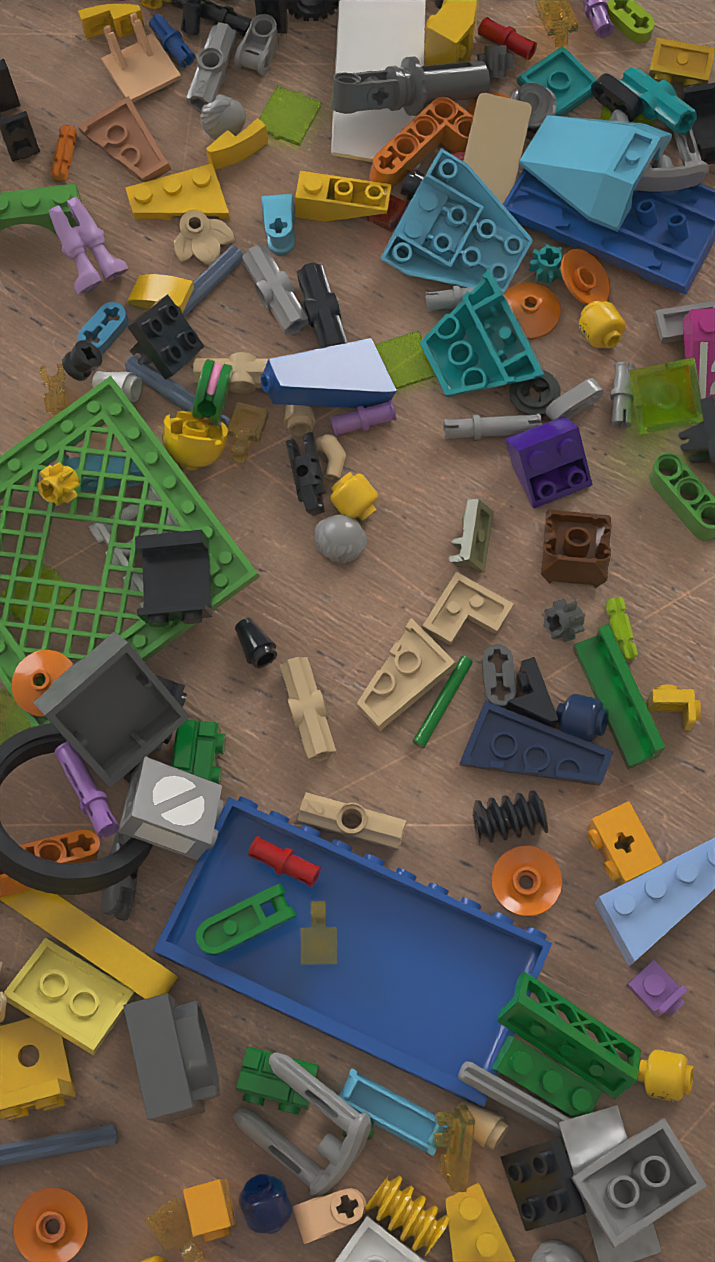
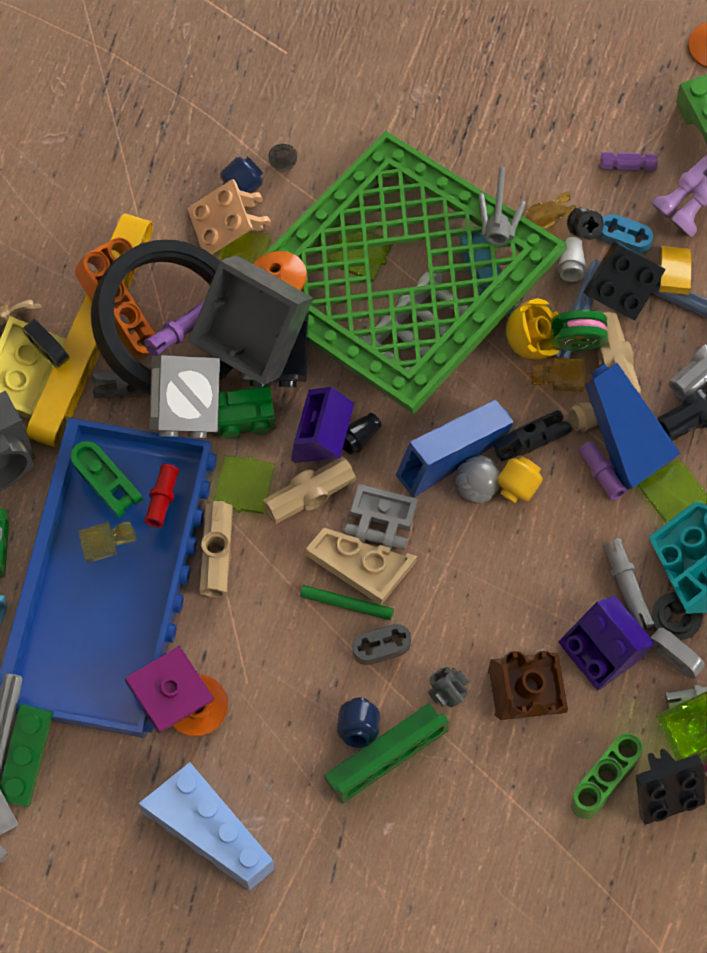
camera: 75 degrees right, 5 degrees down
(19, 304) = (628, 161): none -> medium lavender axle
(54, 956) = (45, 343): none -> black beam
(58, 484) = (449, 229): yellow gear -> none
(71, 433) = (498, 228): none -> light grey plant
(175, 577) = (388, 345): black panel -> none
(244, 676) = (322, 426): none -> dark purple slope
(278, 778) = (245, 483): none -> clear neon green piece
(302, 551) = (447, 447): none -> slope
(335, 453) = (560, 455): tan arm -> none
(348, 638) = (383, 508): none -> light grey plate
(463, 601) = (443, 595): tan plate -> none
(476, 536) = (511, 592): olive plate -> none
(509, 816) = (248, 678): black piece -> none
(511, 902) = (169, 689): none -> magenta plate
(527, 747) = (320, 681): dark blue wing -> none
(537, 703) = (363, 681): black slope -> none
(570, 1041) = (55, 764): green fence -> none
(621, 627) = (456, 743): lime axle -> none
(623, 825) = (265, 775): light orange brick -> none
(657, 990) = (124, 839): medium lavender bracket -> none
(666, 1075) = (49, 857): yellow head -> none
(670, 699) = (397, 797): yellow bracket -> none

